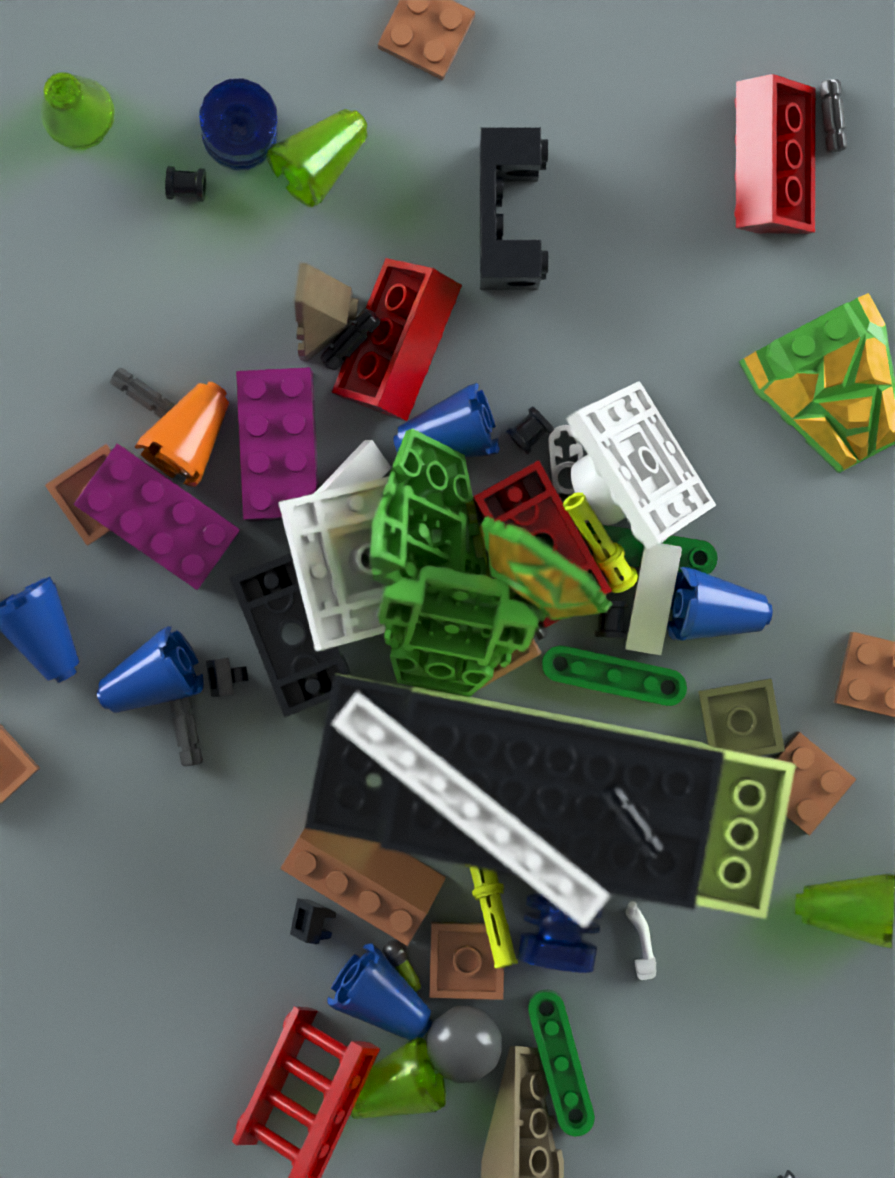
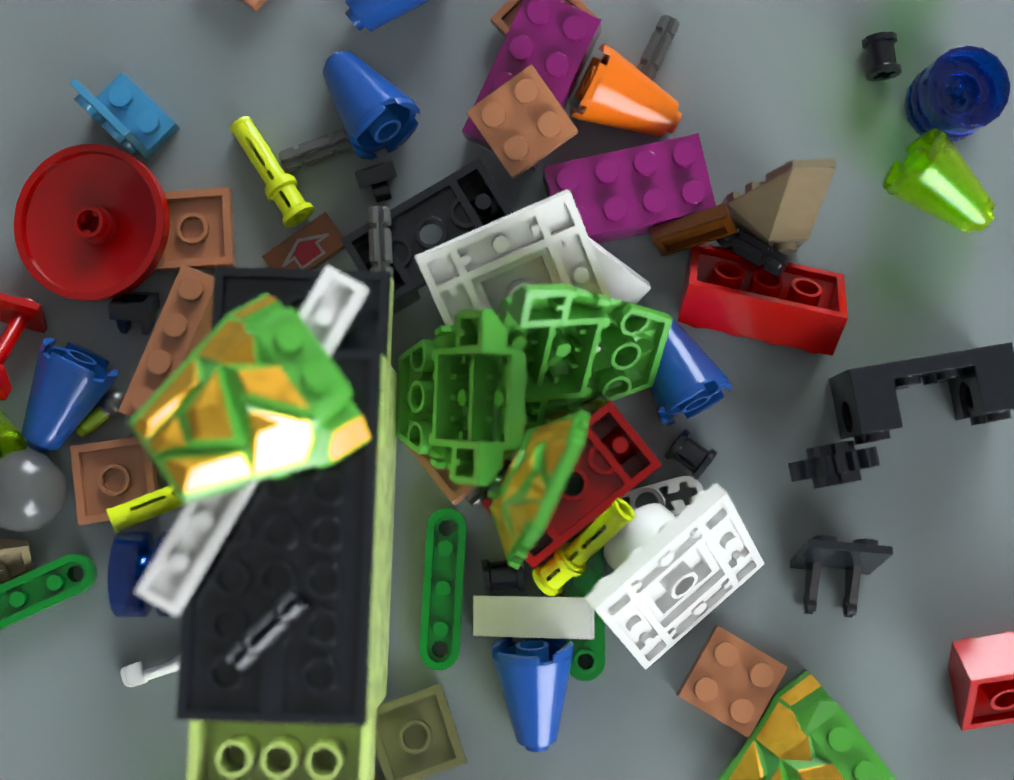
camera: 85 degrees right, 5 degrees down
(125, 897) = (128, 115): none -> dark azure bracket
(201, 532) = (522, 121): none -> nougat plate
(215, 769) = (279, 186): none -> neon yellow pin
(224, 949) = (91, 223): none -> red dish
(243, 856) = (199, 230): none -> nougat plate
(280, 754) = (308, 246): none -> reddish brown tile
(297, 681) = (380, 239): none -> dark grey axle
(324, 391) = (693, 230): none -> reddish brown tile
(442, 805) = (250, 406): none -> wedge
(561, 304) = (833, 464): none -> black gear
(648, 298) = (856, 558): none -> black plate
(738, 429) = (732, 681): none -> nougat plate

